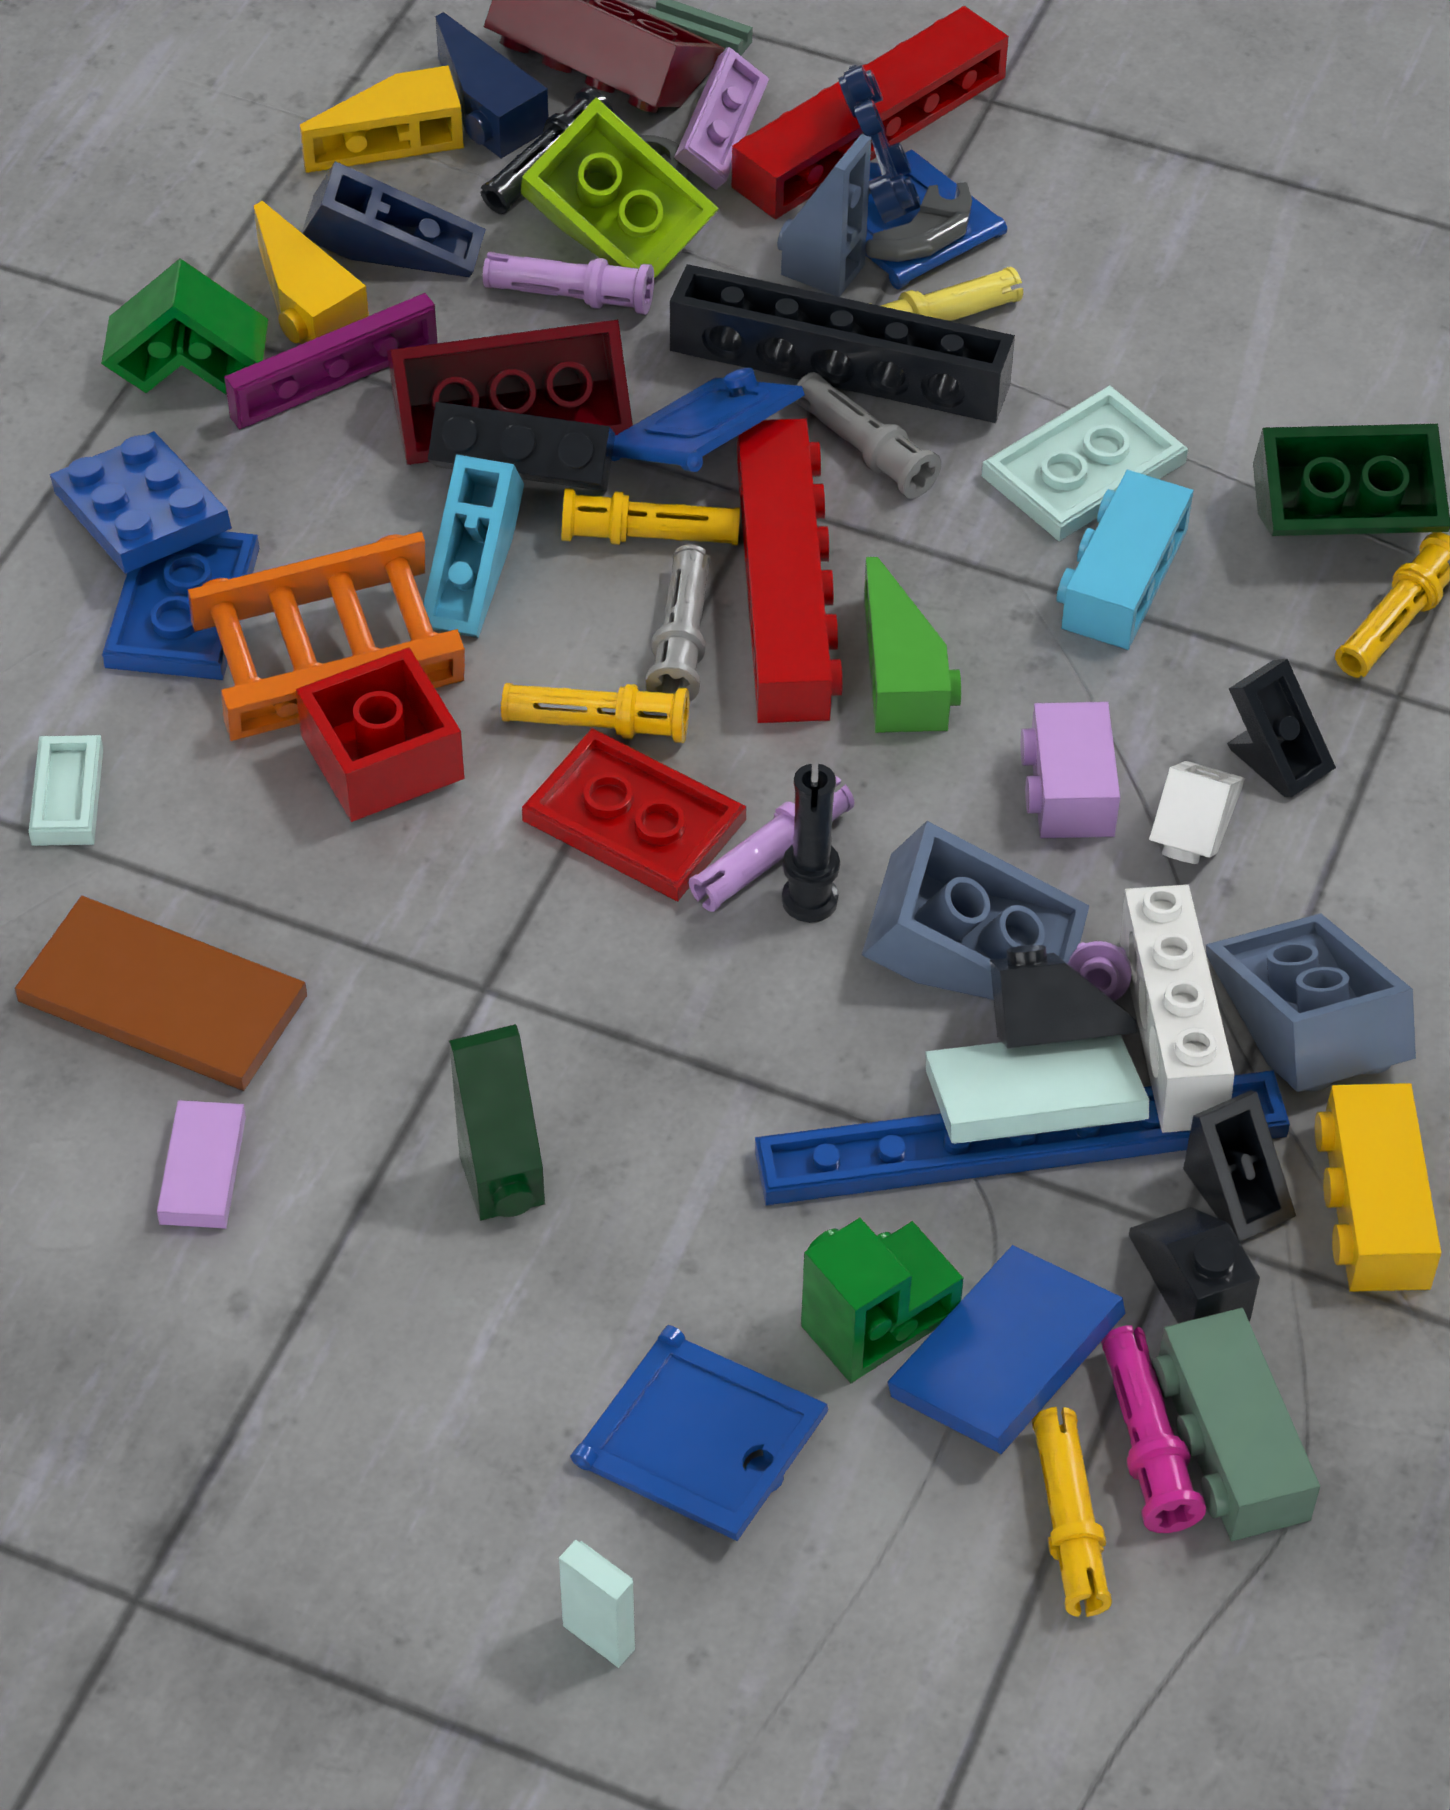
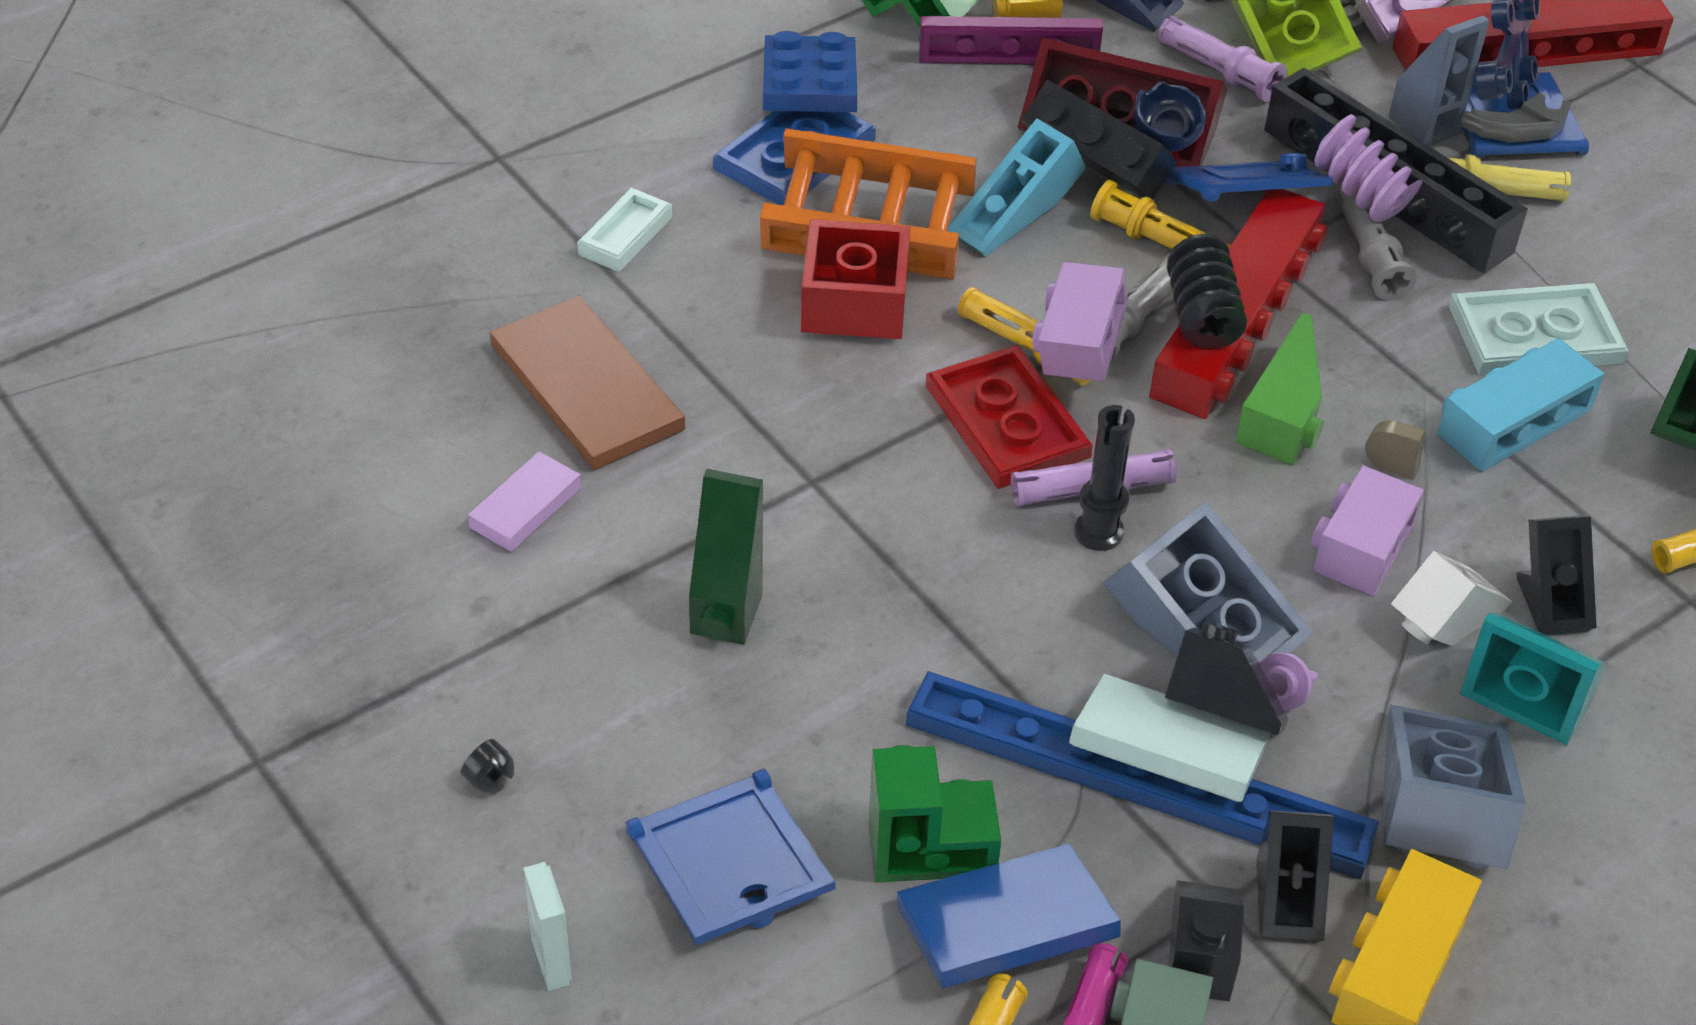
camera: 30 degrees right, 5 degrees down
(389, 1471) = (487, 765): none -> black hinge
(585, 386) = (1170, 115): none -> dark blue hair
(665, 675) = (1081, 321): none -> lavender brick
(771, 583) = (1206, 291): none -> black piece
(828, 361) = (1364, 172): none -> lavender piece
(1041, 664) = (1396, 447): none -> dark tan tile
(1175, 1004) = (1323, 725): white brick -> none
(1322, 851) = (1531, 677): none -> teal slope

